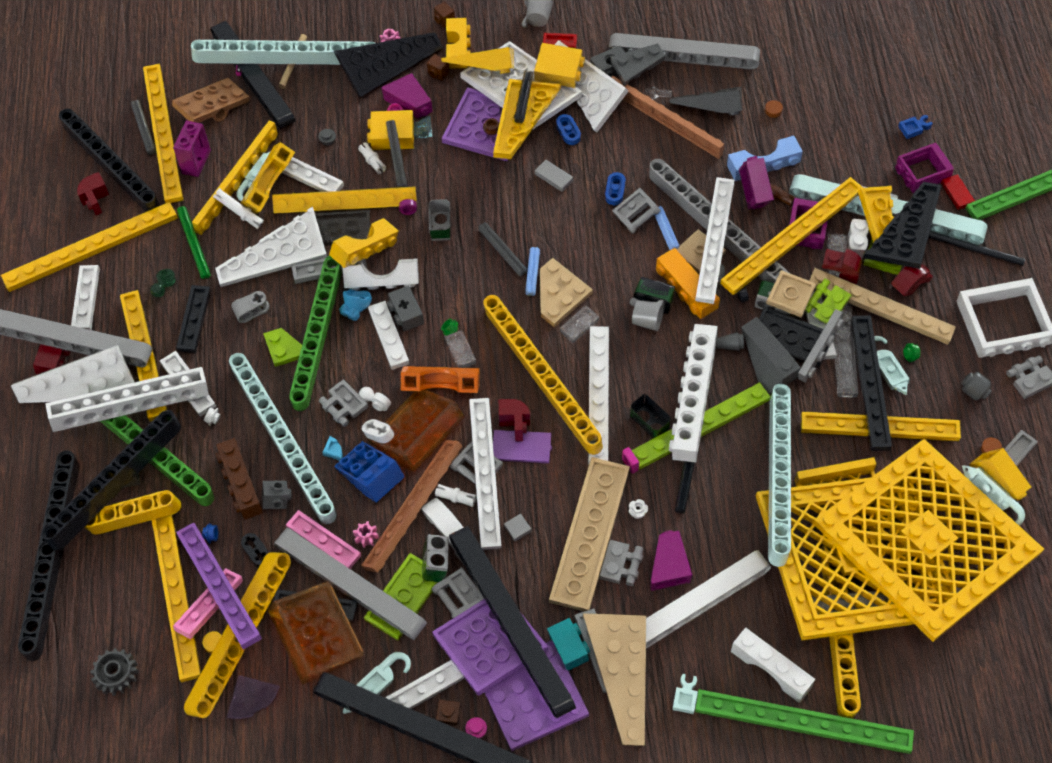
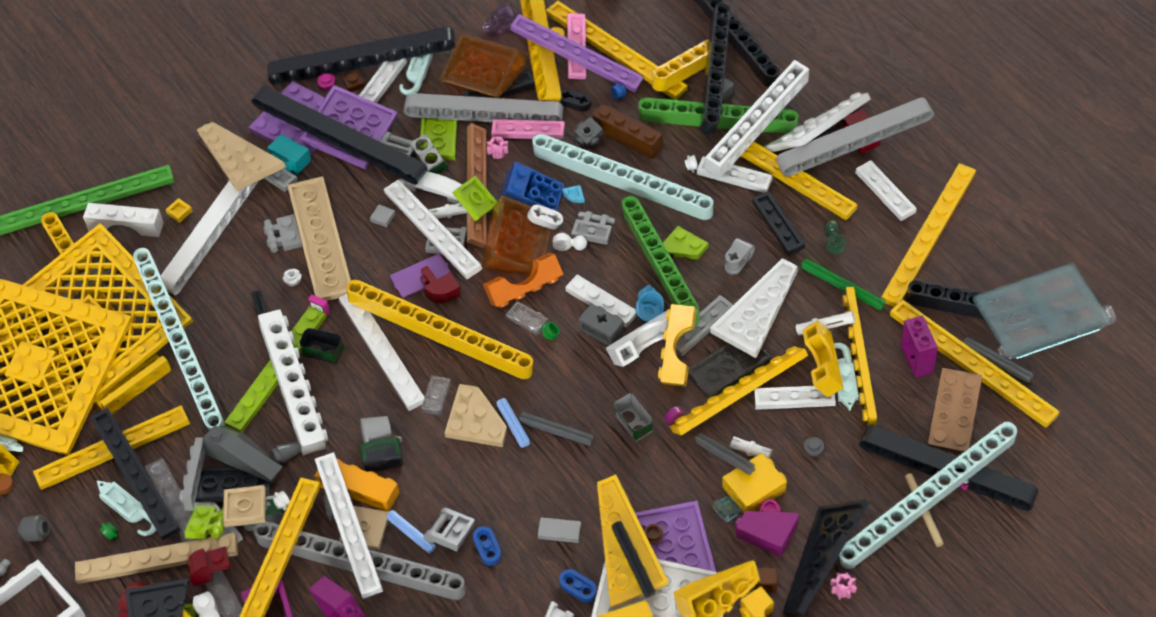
camera: 150 degrees right, 5 degrees down
(81, 127) = (1042, 311): none -> clear light blue door
(91, 190) = (976, 272): dark red brick -> none
(426, 479) = (475, 198): none -> lime tile
(670, 563) = (241, 249): magenta slope -> none
(685, 697) = (181, 172): light aqua plate -> none
(710, 647) = (179, 210): none -> yellow plate
(758, 284) = (281, 500): none -> white plate

